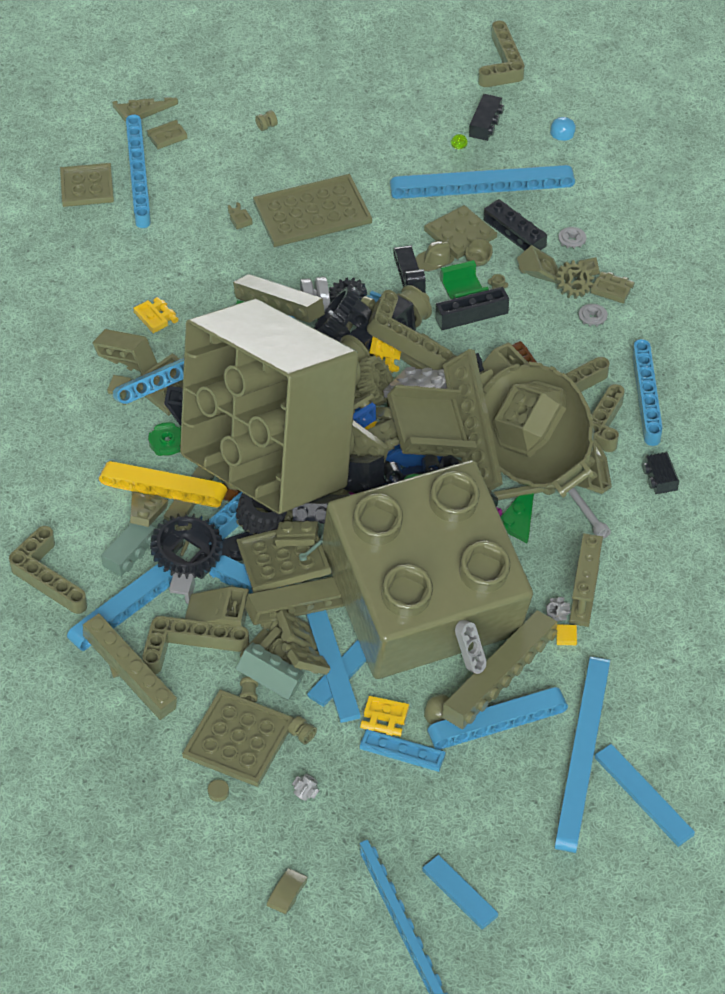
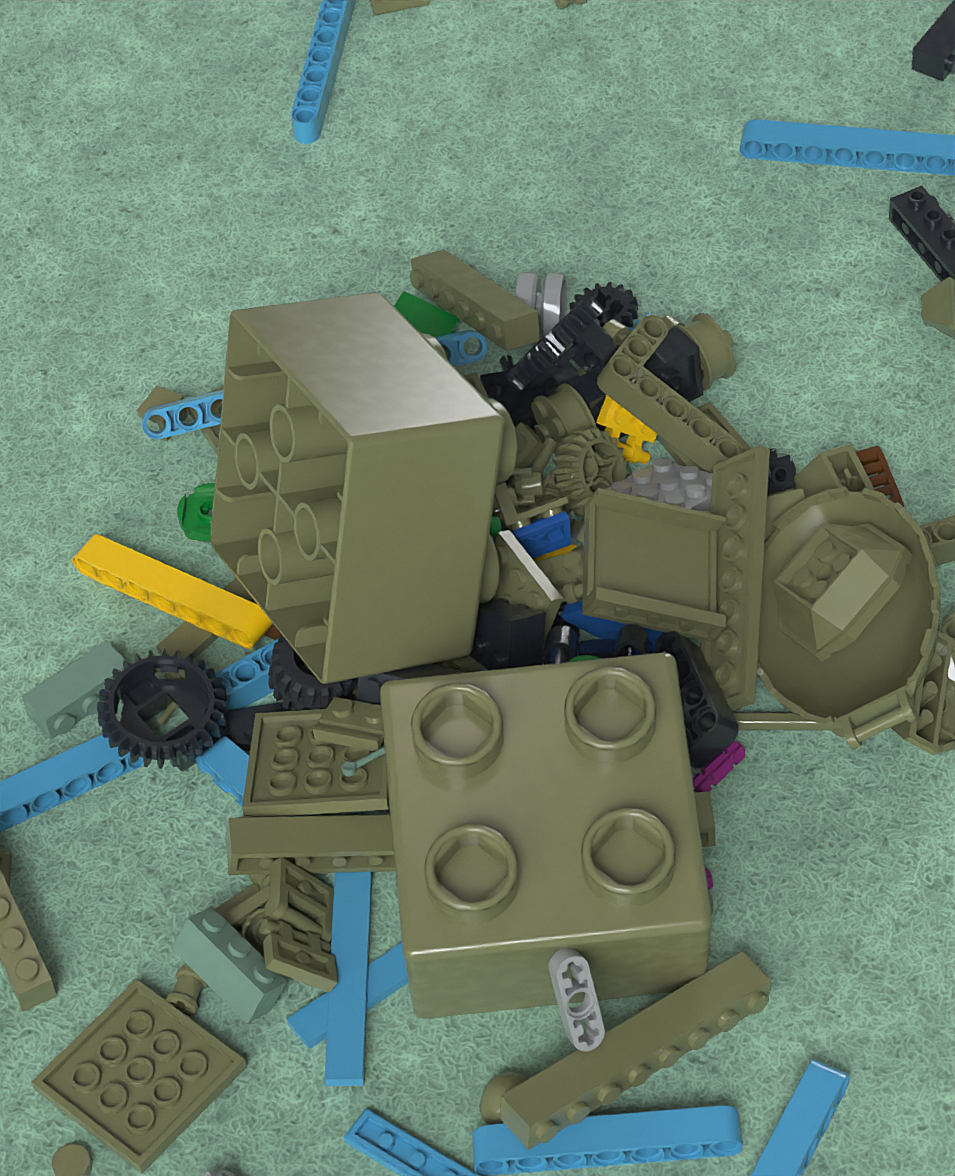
camera: 20 degrees right, 0 degrees up
(86, 184) = (236, 57): olive plate -> none
(125, 348) = (190, 343): olive wedge -> none
(146, 508) = (127, 628): olive wing -> none
(152, 318) = (258, 287): yellow plate -> none
(183, 586) = (141, 780): light grey panel -> none
(191, 633) = (120, 871): olive beam -> none
(219, 606) = (183, 836): olive slope -> none
(239, 217) = (467, 149): olive plate -> none
(301, 729) = (250, 1081): olive wheel -> none
(312, 210) = (594, 156): olive plate -> none
(387, 711) = (411, 1081): yellow plate -> none
(408, 268) = (724, 286): black beam -> none
(436, 256) = (781, 270): olive piece -> none
(459, 141) = (890, 75): clear neon green plate -> none
(459, 230) = (840, 233): olive plate -> none
(461, 280) = (812, 328): green panel -> none
(472, 308) = (810, 372): black brick -> none
(479, 251) = (857, 274): olive hair -> none
(497, 281) = (875, 334): olive plate -> none
(518, 517) = (769, 770): green wing -> none
(558, 609) = (784, 956): light grey gear -> none
(566, 635) = (787, 1008): yellow tile -> none
(586, 580) = (848, 913): olive fence -> none
(599, 528) = (913, 820): light grey piece -> none

